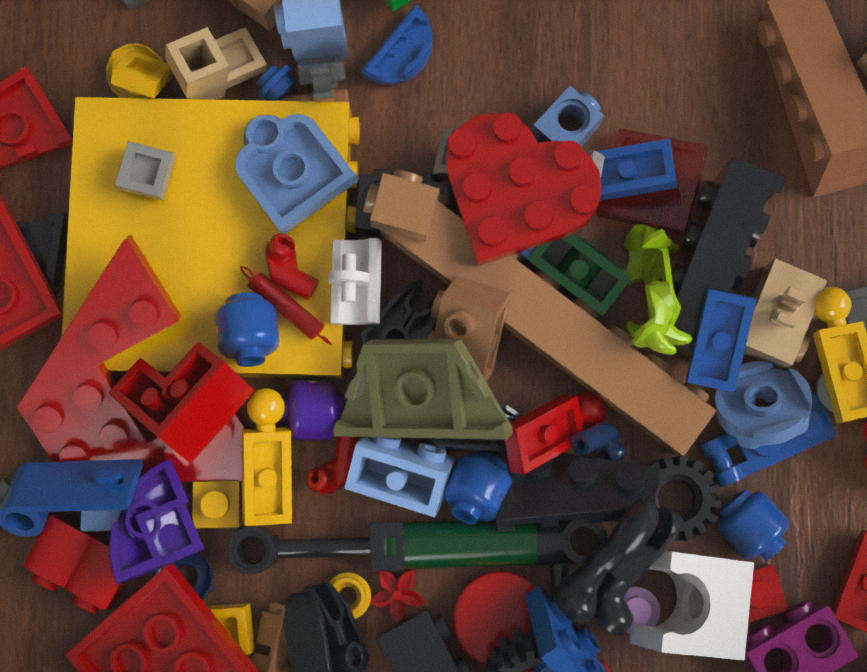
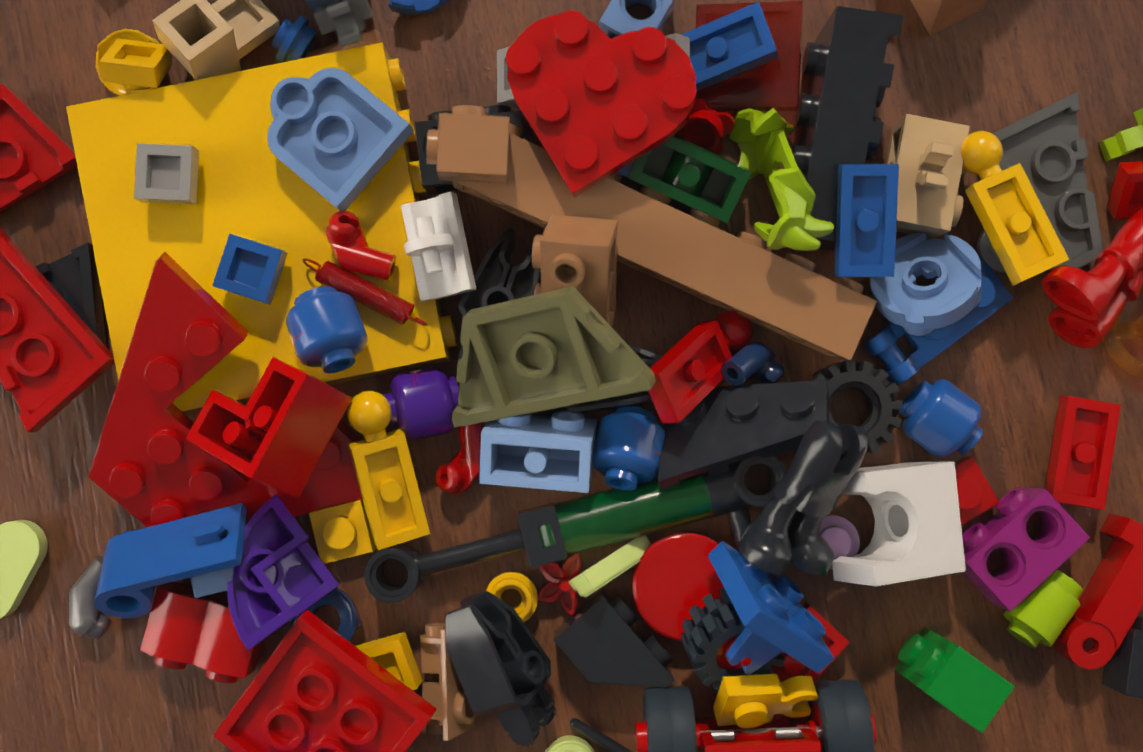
camera: 15 degrees left, 5 degrees up
(195, 264) = (249, 269): none -> blue plate
(433, 588) = (610, 567): none -> yellowish green tile
(615, 231) = (718, 124): none -> red plate

